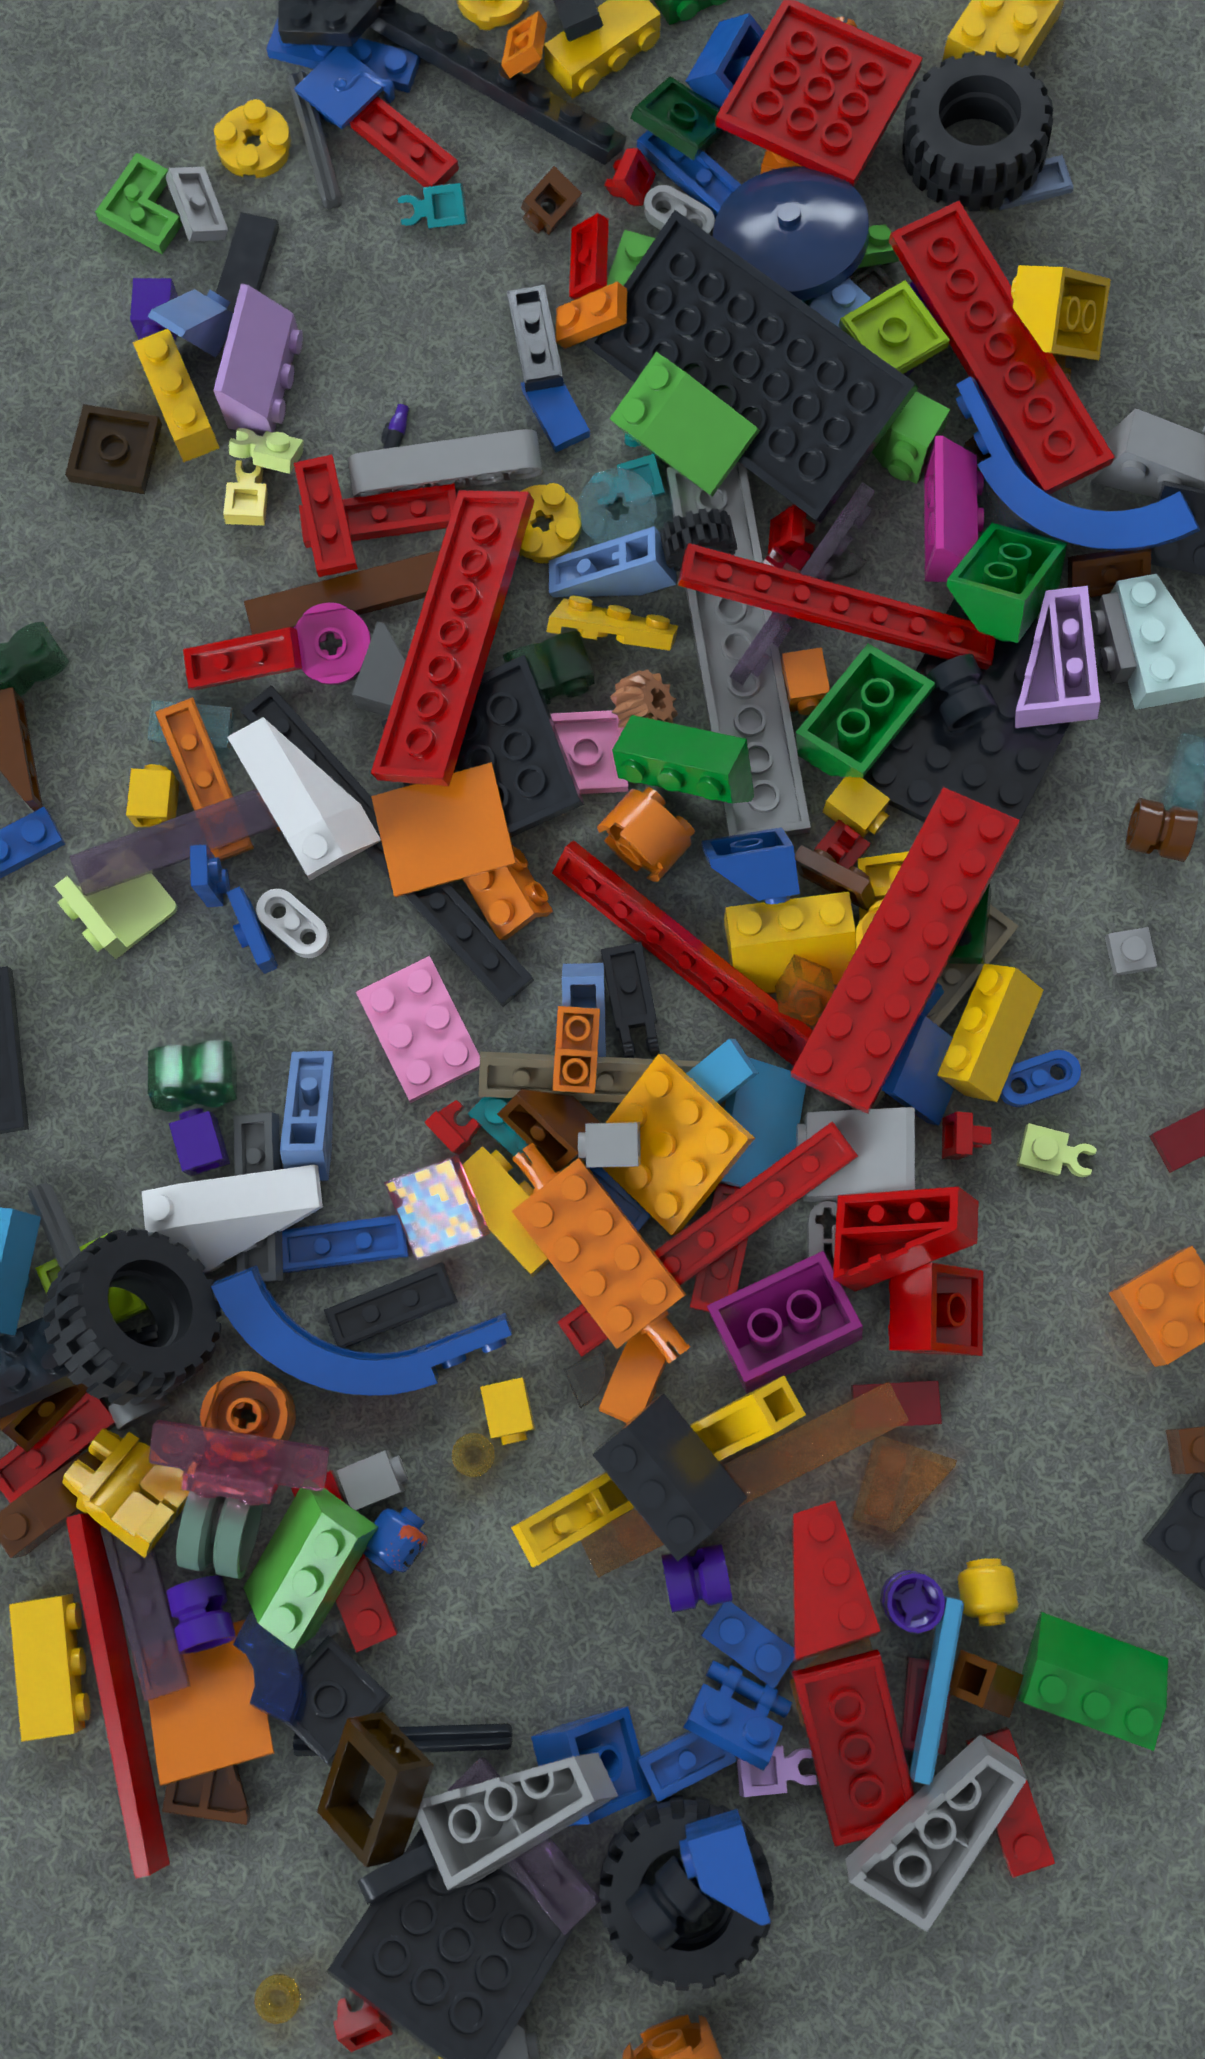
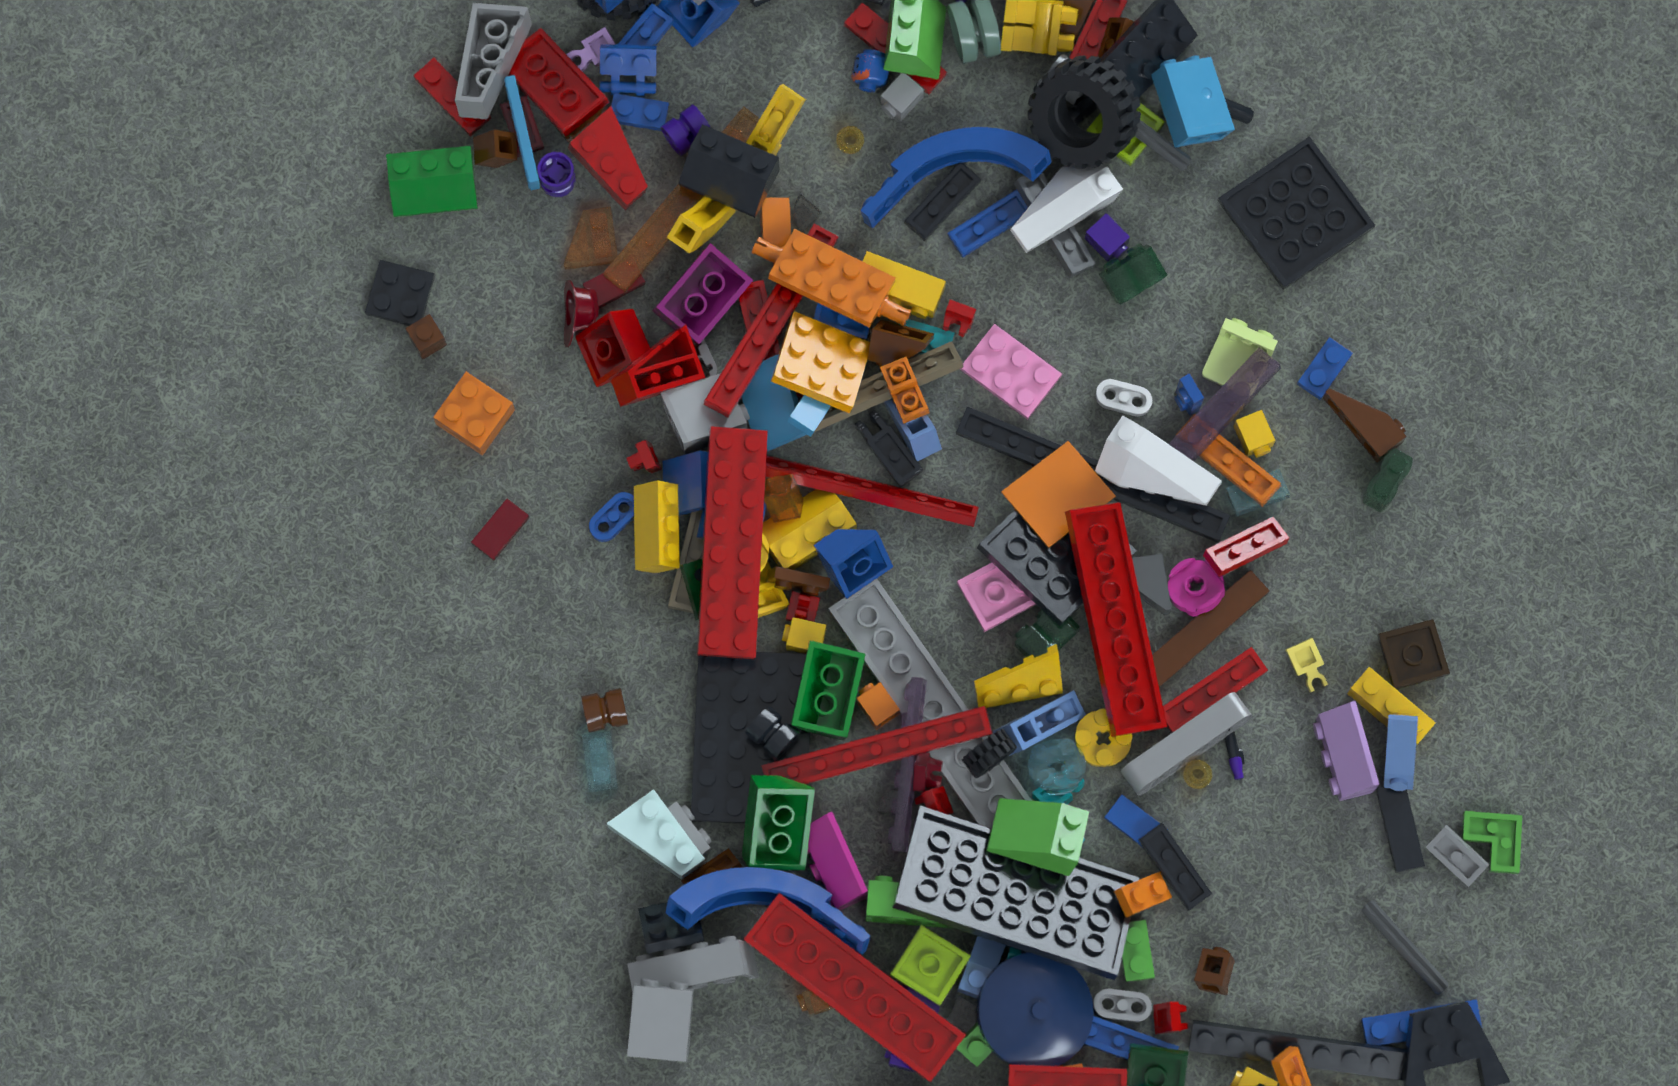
camera: 150 degrees right, 0 degrees up
(146, 295) = (1441, 763): dark purple brick -> none
(236, 1462) = (980, 59): clear pink bracket -> none
(240, 1391) = (1003, 86): orange brick -> none
(247, 121) = (1432, 932): yellow plate -> none
(250, 930) = (1146, 378): blue plate -> none
(270, 451) = (1306, 701): yellowish green plate -> none
(309, 1112) = (1050, 286): medium blue slope -> none
(325, 516) = (1243, 664): red plate -> none
(342, 87) = (1403, 987): blue hat -> none
(404, 144) = (1340, 970): red plate -> none
(437, 1207) = (942, 264): tile -> none
(441, 205) = (1290, 933): teal plate -> none
(450, 418) = (1193, 782): none -> clear yellow plate
(508, 1410) = (842, 172): yellow brick -> none
(509, 897) = (992, 476): orange bracket -> none
(588, 256) = (1167, 942): red plate -> none
(610, 1144) = (854, 339): light grey brick -> none
(643, 696) = (972, 635): nougat gear -> none
(646, 833) = (929, 550): orange brick -> none
(684, 760) = (925, 594): green slope -> none
(962, 1383) = (580, 310): none -> dark red piece
(988, 1591) = (514, 201): yellow head -> none
(1048, 1150) = (589, 477): yellowish green plate -> none
(1062, 308) = (824, 1034): yellow slope -> none
(1062, 664) = (716, 781): lavender wedge -> none
(1131, 951) = (590, 627): light grey plate -> none

